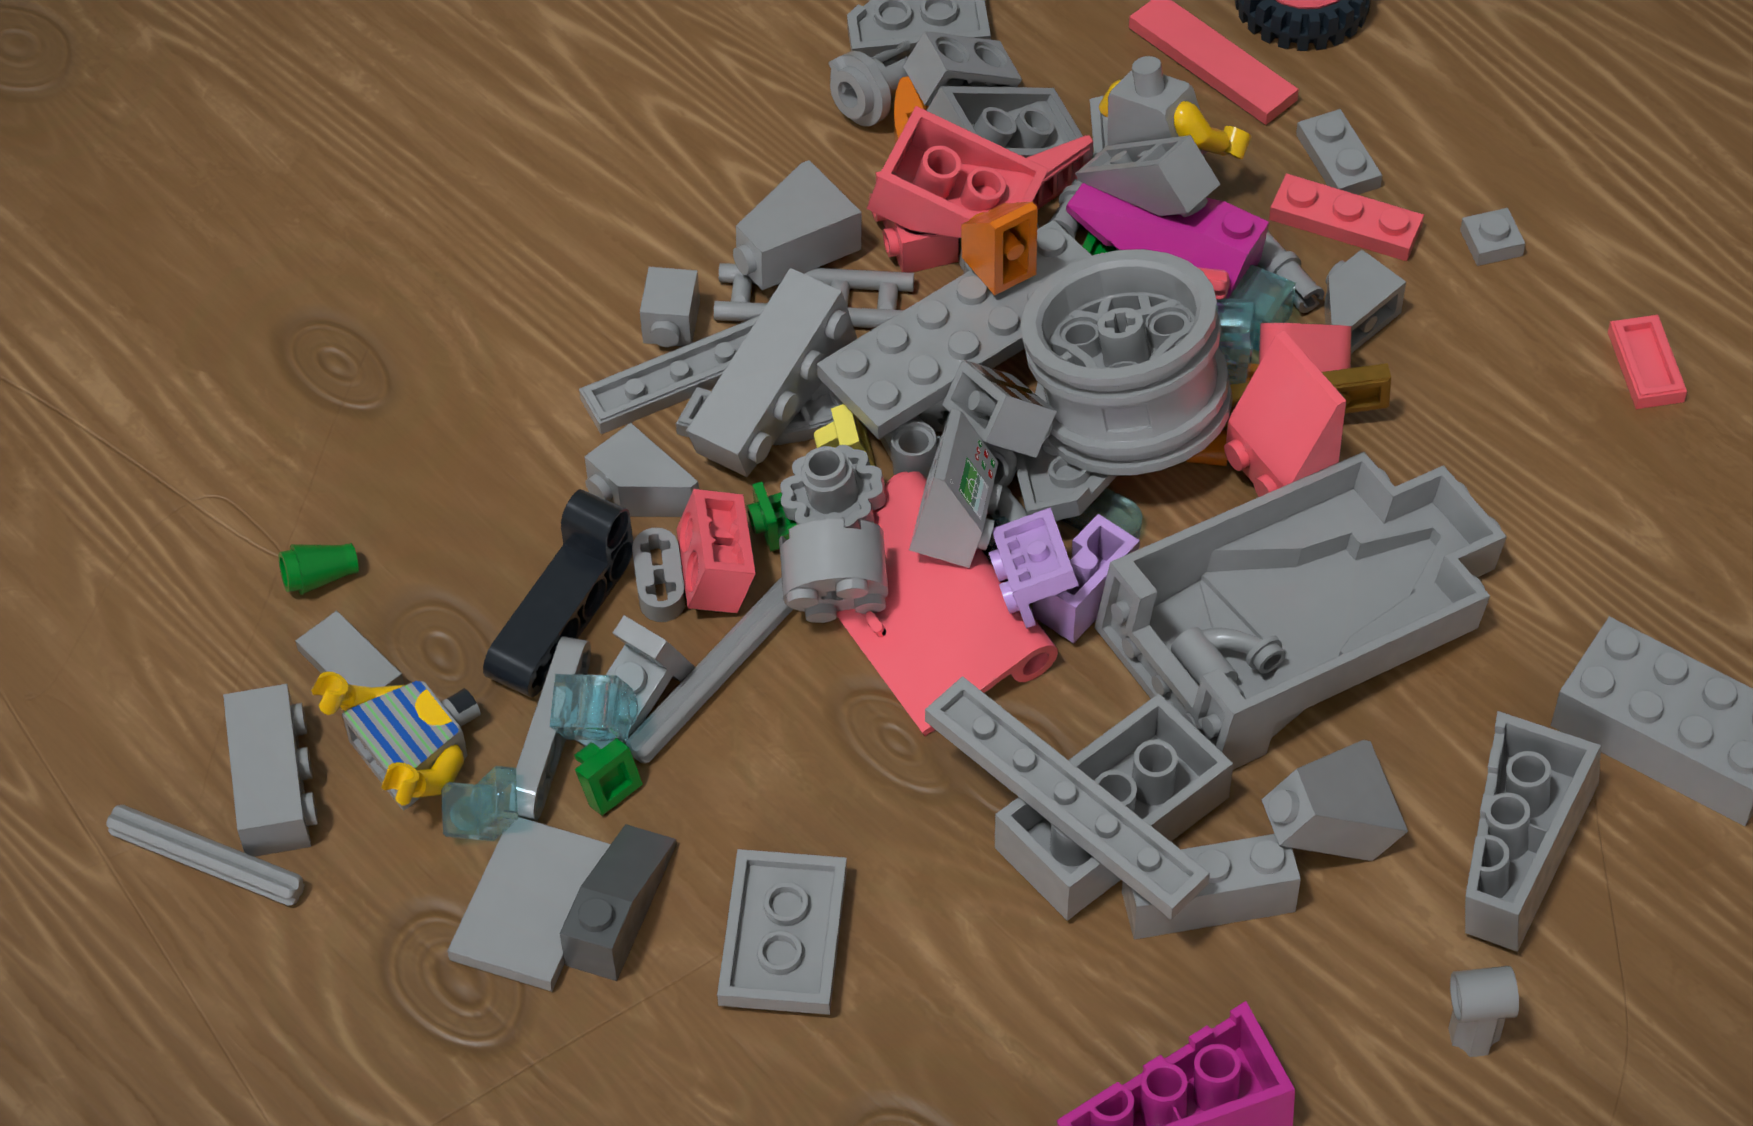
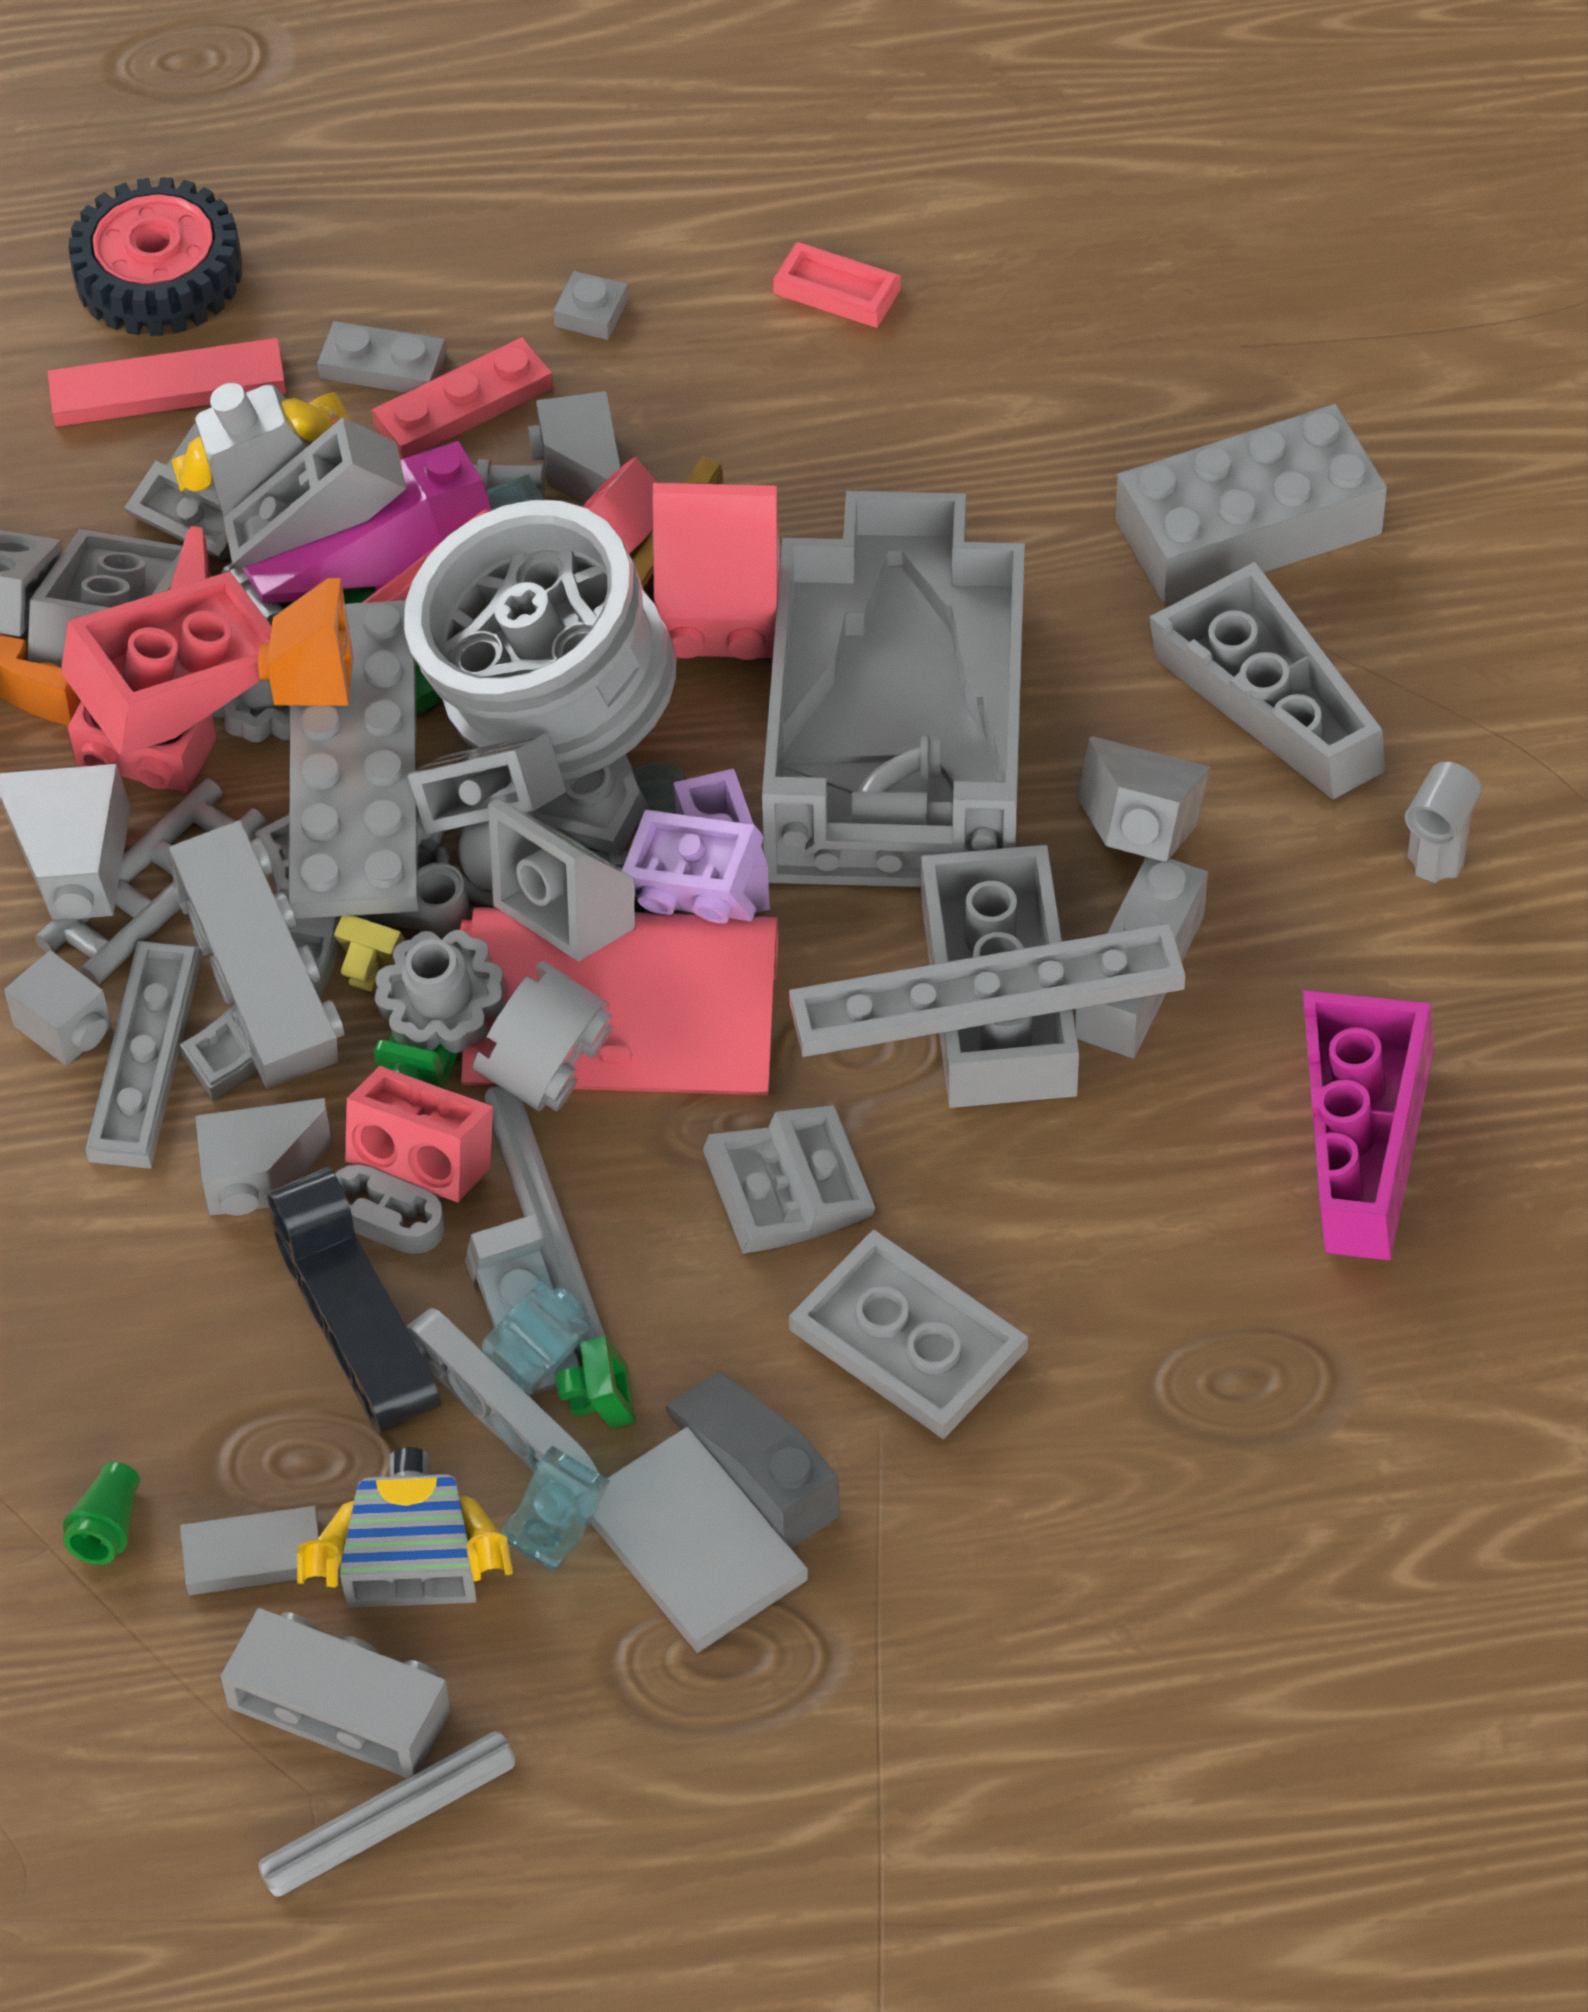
camera: 55 degrees left, 0 degrees up
(859, 786) = (788, 1179): none -> light grey slope

